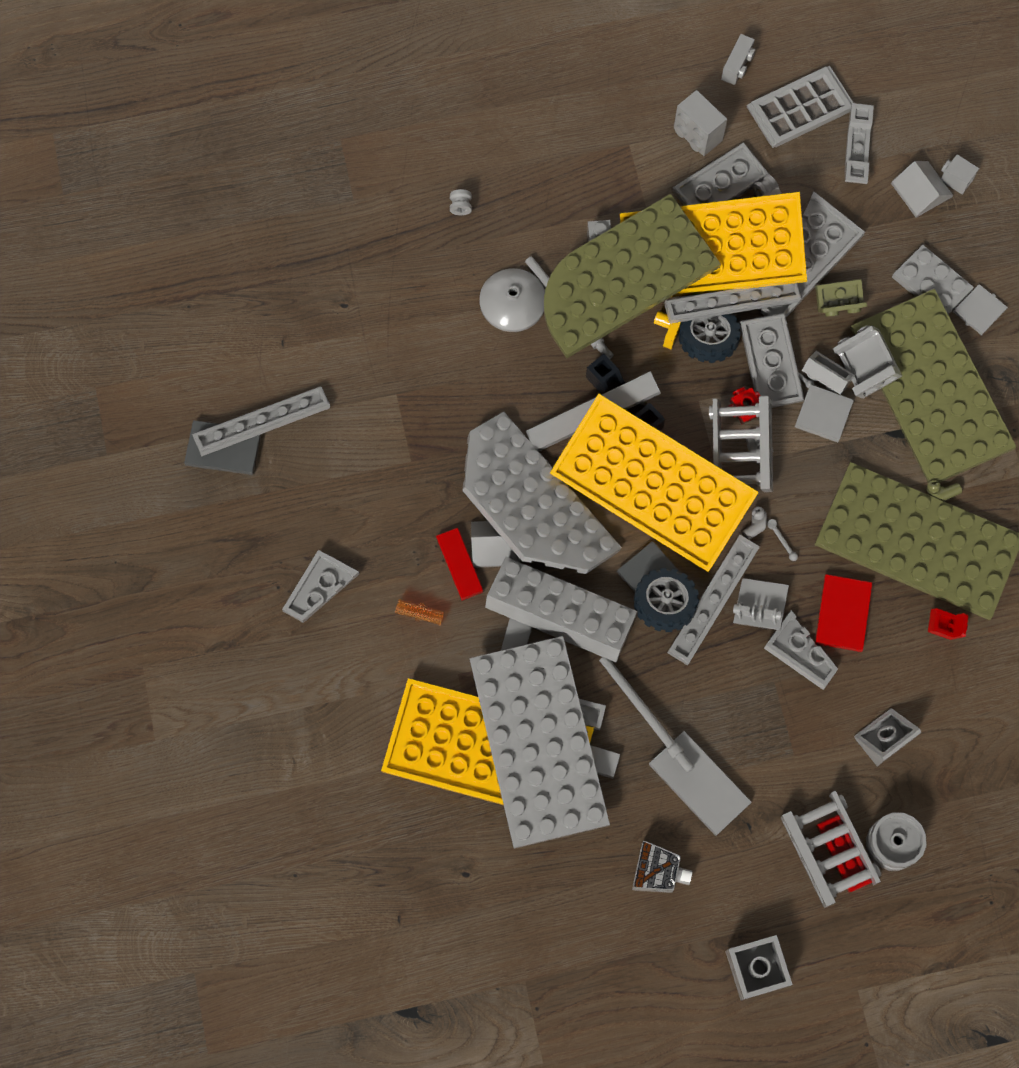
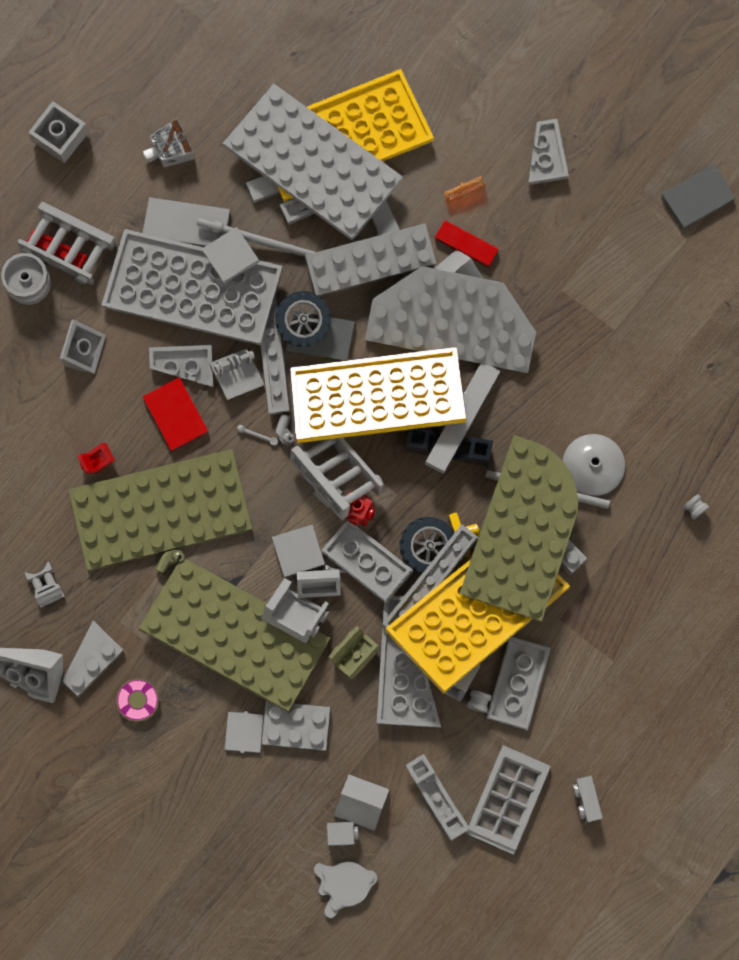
camera: 140 degrees right, 5 degrees up
(261, 421) = (688, 232): light grey tile -> none
(687, 707) = (230, 255): none -> light grey tile
(700, 123) = (571, 710): light grey brick -> none
(742, 714) = (181, 288): none -> light grey plate
(984, 140) = (345, 884): none -> light grey tile

